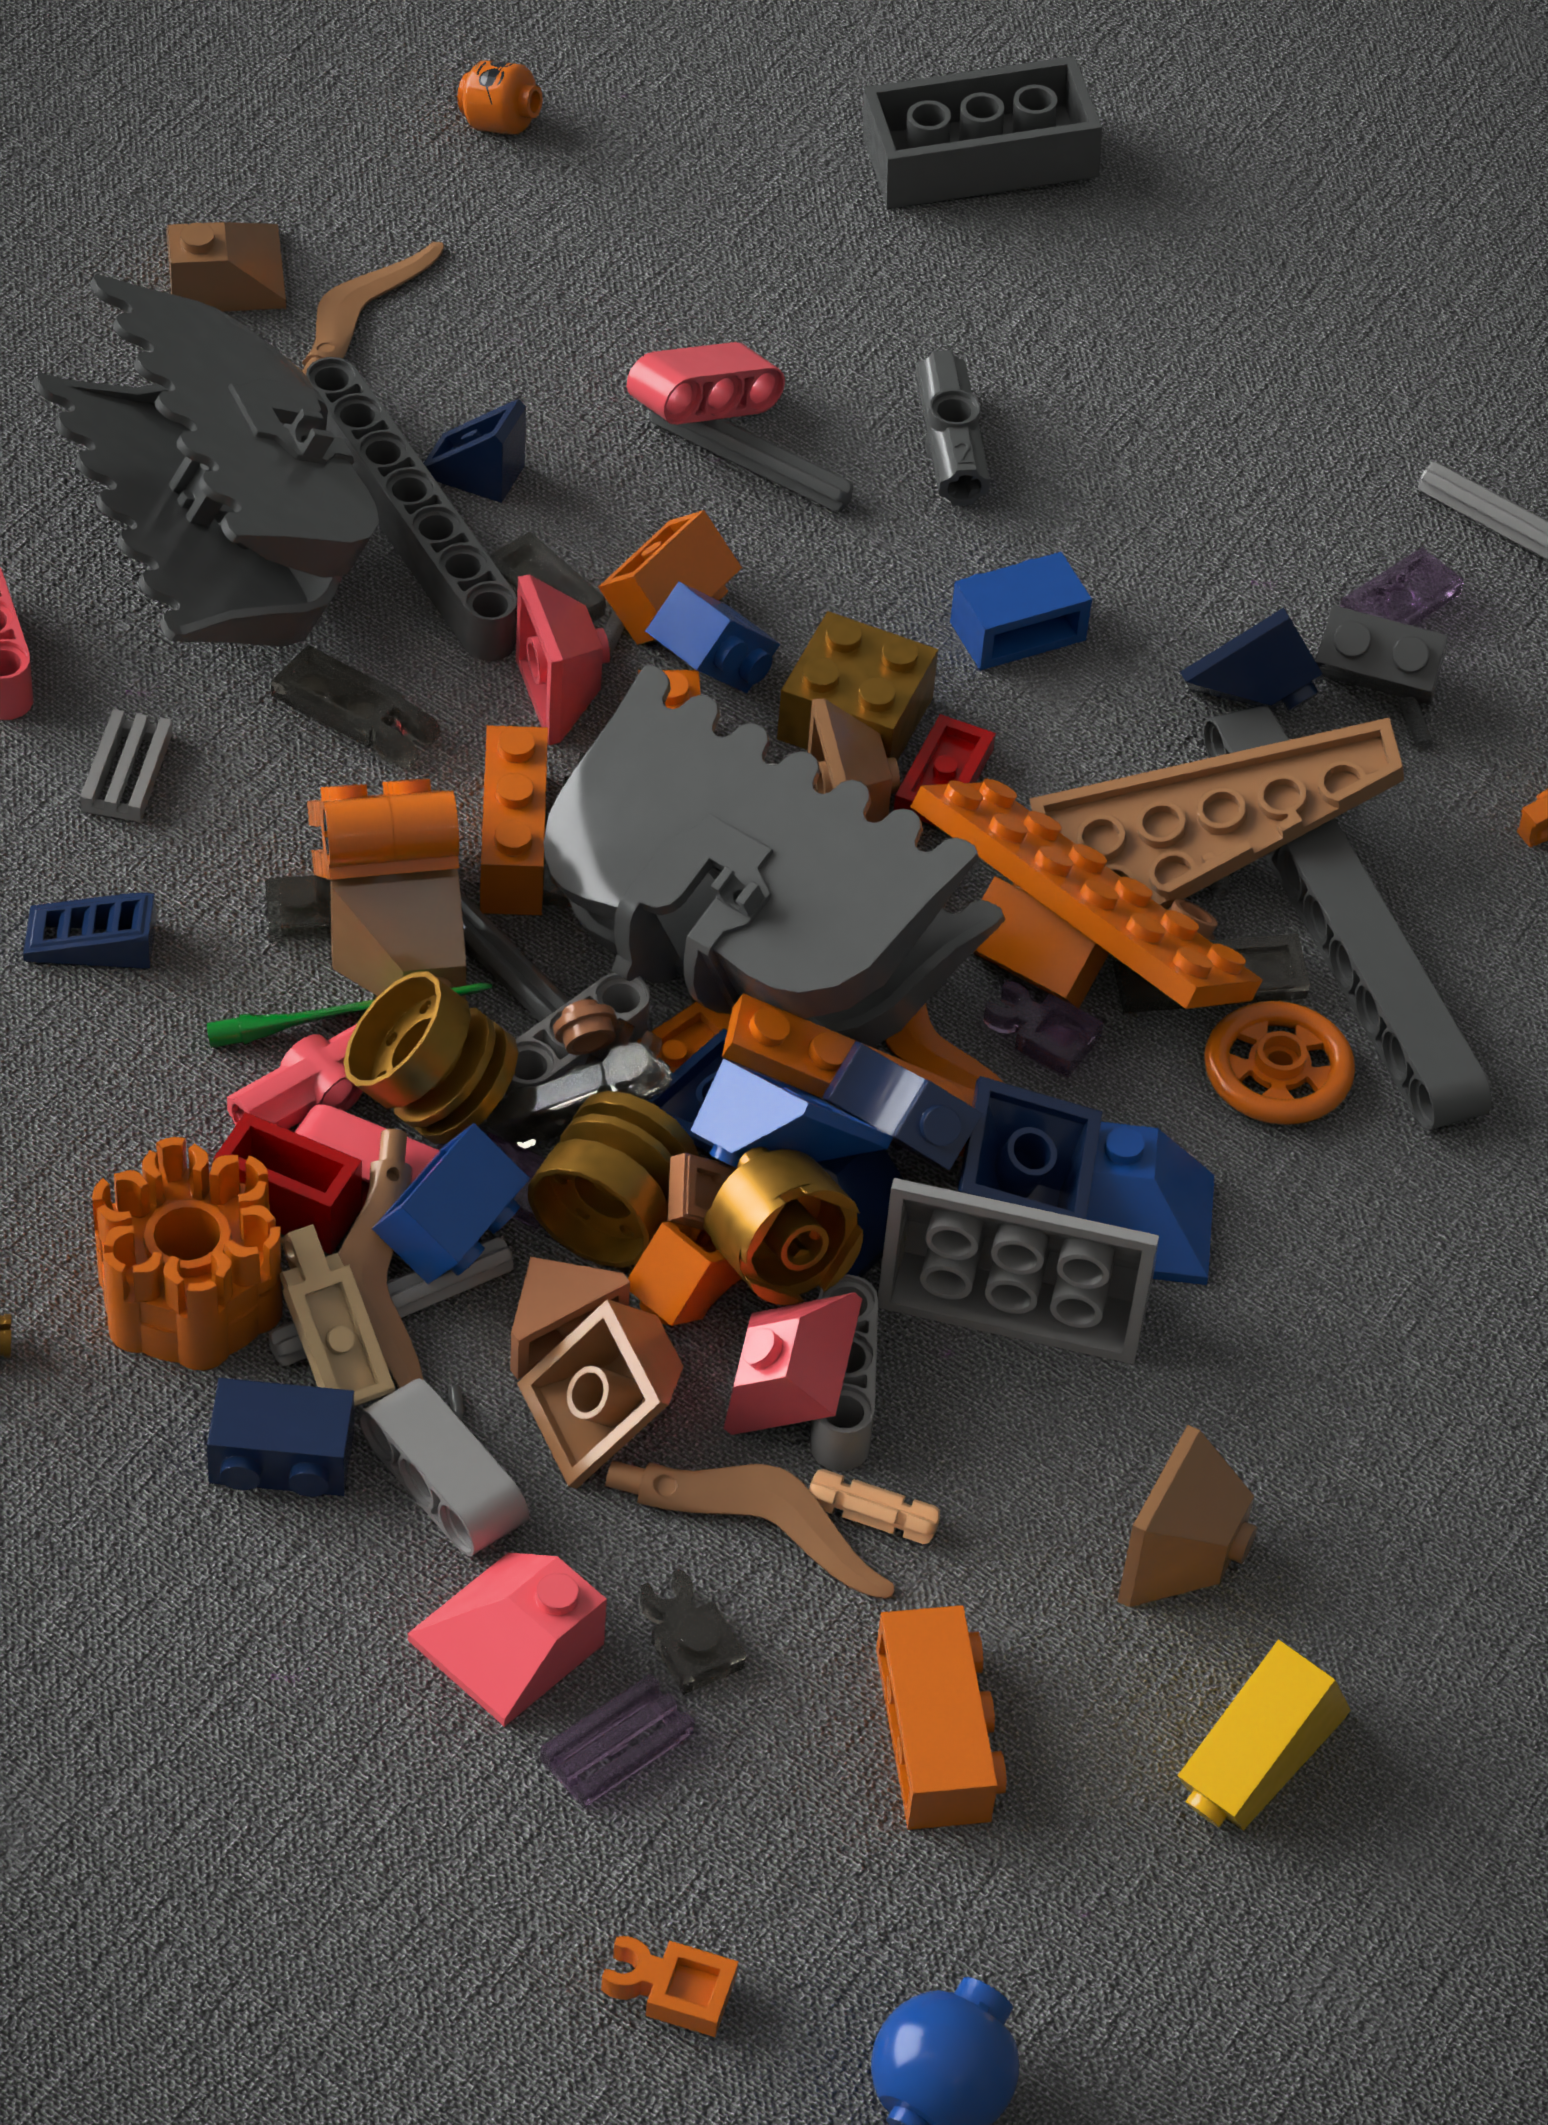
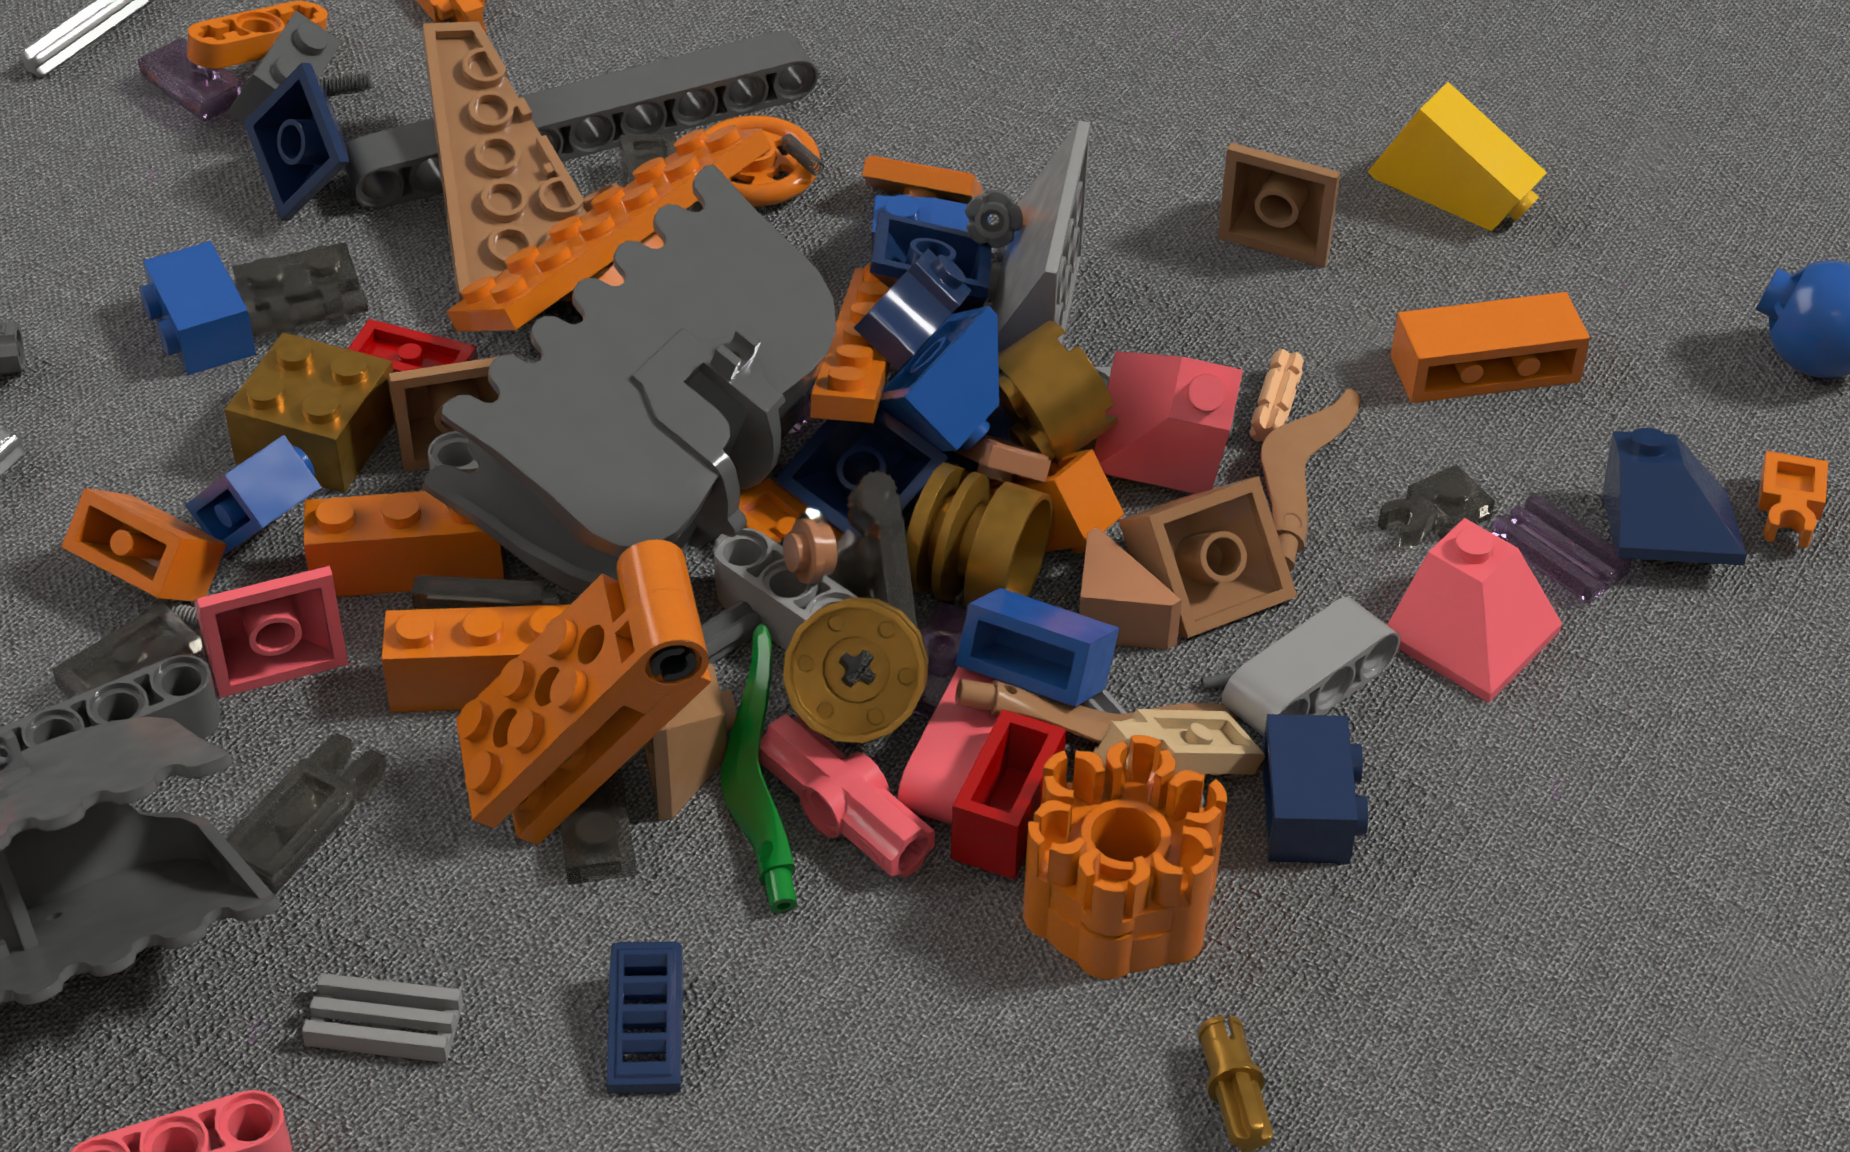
camera: 90 degrees left, 5 degrees down
(650, 1839) = (1667, 503): none -> dark blue slope
(1078, 691) = (300, 289): none -> clear smoke plate
(1084, 1200) = (996, 203): none -> dark grey plate
(1233, 1205) = (920, 180): none -> orange plate
(1265, 1090) = (802, 155): none -> dark grey leg
(1470, 661) = (245, 35): none -> orange beam

